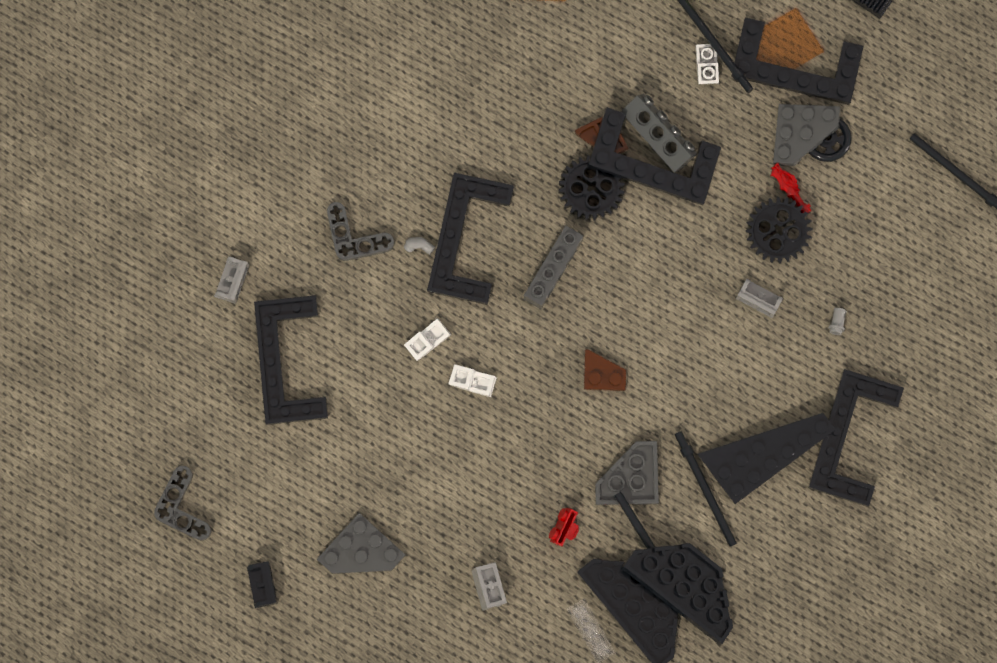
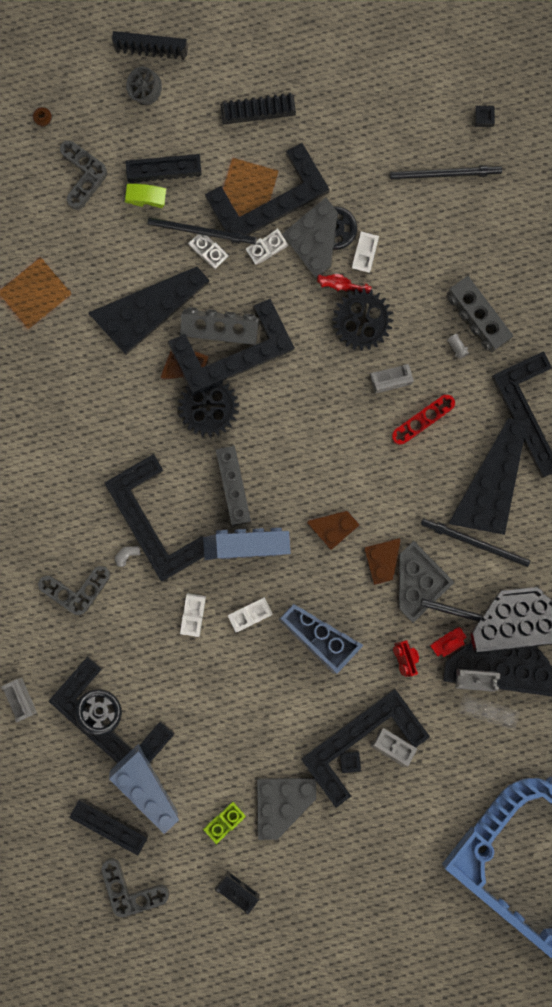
camera: 40 degrees left, 5 degrees up
(211, 441) = (109, 826): none -> black gear
(268, 431) = (142, 786): none -> sand blue wedge
(274, 356) = (89, 698): none -> black plate
(302, 522) = (224, 822): none -> lime slope
(444, 567) = (350, 762): none -> black tile
(511, 452) = (324, 641): none -> sand blue wedge
(515, 551) = (388, 706): none -> black plate
(522, 321) = (246, 544): none -> sand blue wedge
(602, 65) = (139, 314): none -> black wing
(604, 593) = (477, 680): none -> light grey hinge
(609, 546) = (448, 642): none -> red piece
(617, 435) = (382, 560): none -> reddish brown wing
(754, 354) = (424, 421): none -> red beam
(757, 104) = (267, 247): none -> white slope
(833, 179) = (365, 252): none -> white slope
(887, 281) = (479, 304): none -> dark grey brick

